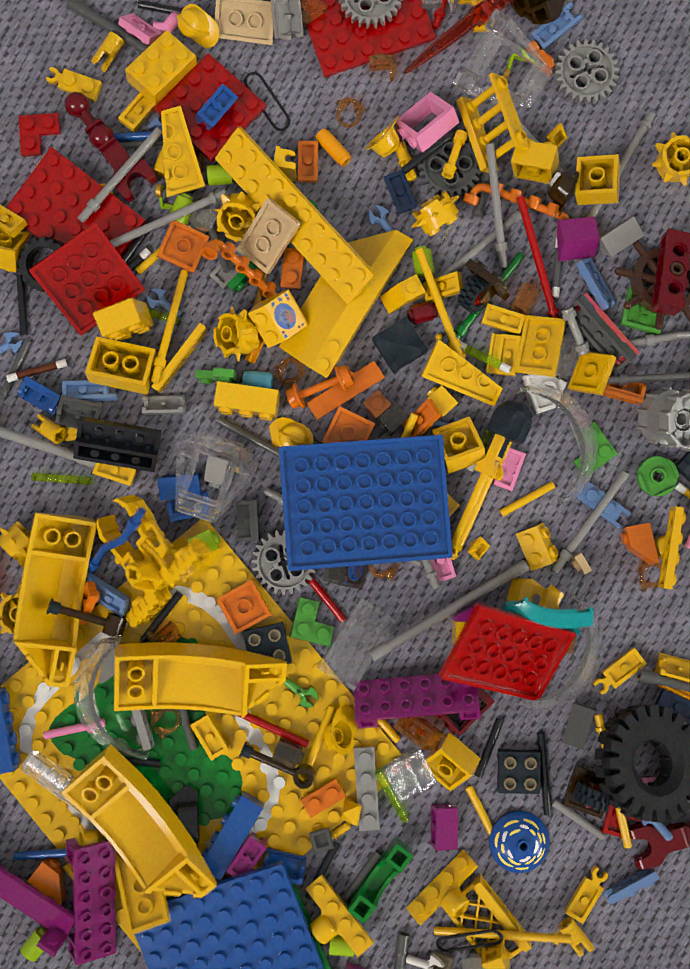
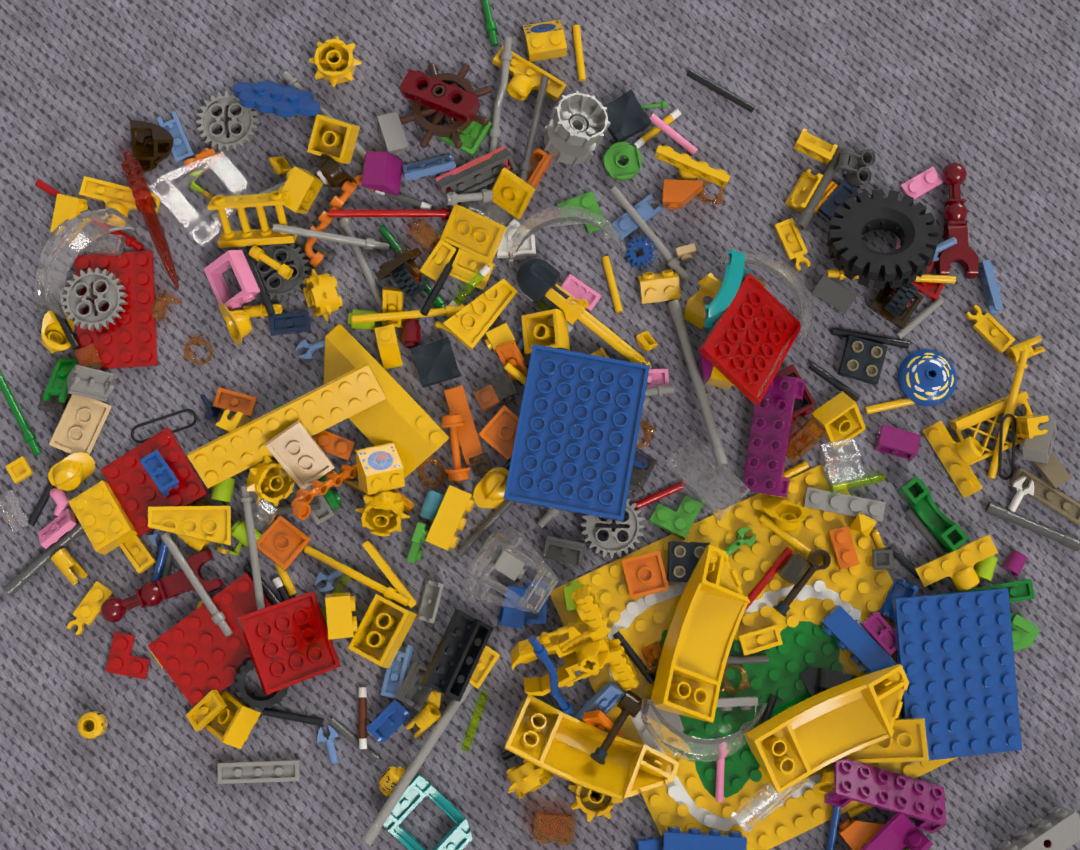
camera: 80 degrees left, 5 degrees down
(293, 141) = (212, 412): none -> dark blue hand
(310, 416) = (480, 464): none -> clear smoke plate
(333, 147) = (228, 374): light orange piece -> none
(472, 324) = (436, 289): none -> black bar
(572, 524) = (647, 249): none -> blue gear
(622, 111) = (276, 99): none -> blue plate

